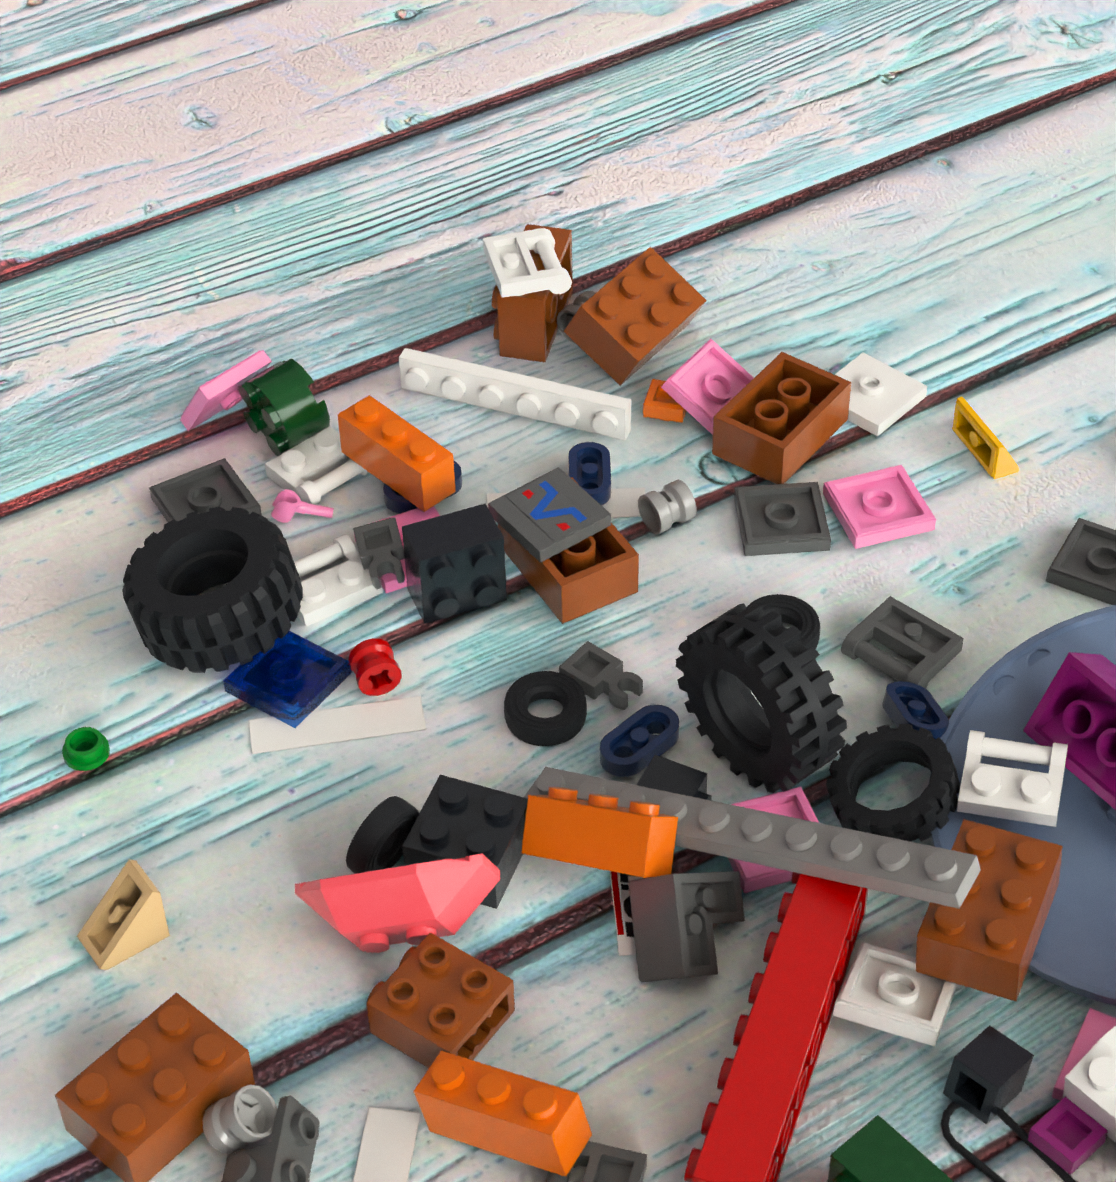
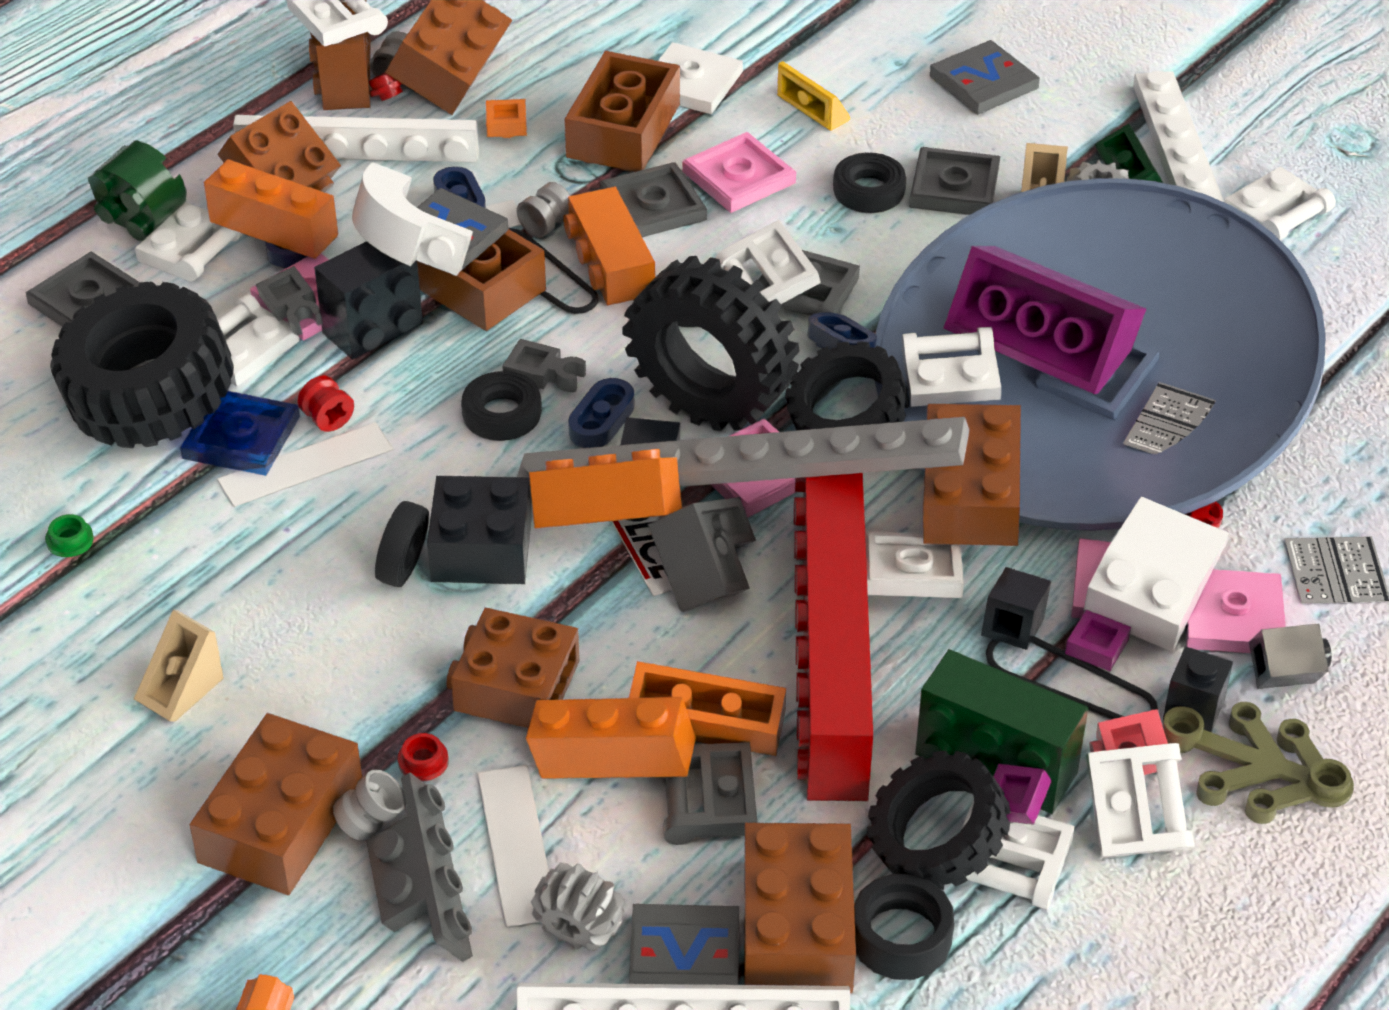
camera: 20 degrees left, 0 degrees up
(222, 391) = (69, 187): bright pink plate -> none
(289, 502) = (178, 276): bright pink hand -> none
(315, 1066) = (423, 757): none -> red plate
(402, 901) = (440, 590): coral wedge -> none
(431, 397) = (284, 147): none -> dark orange brick
(494, 507) = (401, 229): none -> white arch
(562, 345) = (384, 86): none -> red plate
(622, 1105) = (718, 705): none -> orange brick
(667, 621) = (576, 310): none -> black piece
(707, 383) = (543, 95): bright pink plate -> none
(714, 557) = (609, 244): none -> orange brick
(876, 620) = (777, 259): none -> white plate
(1006, 564) = (869, 198): none -> black tyre

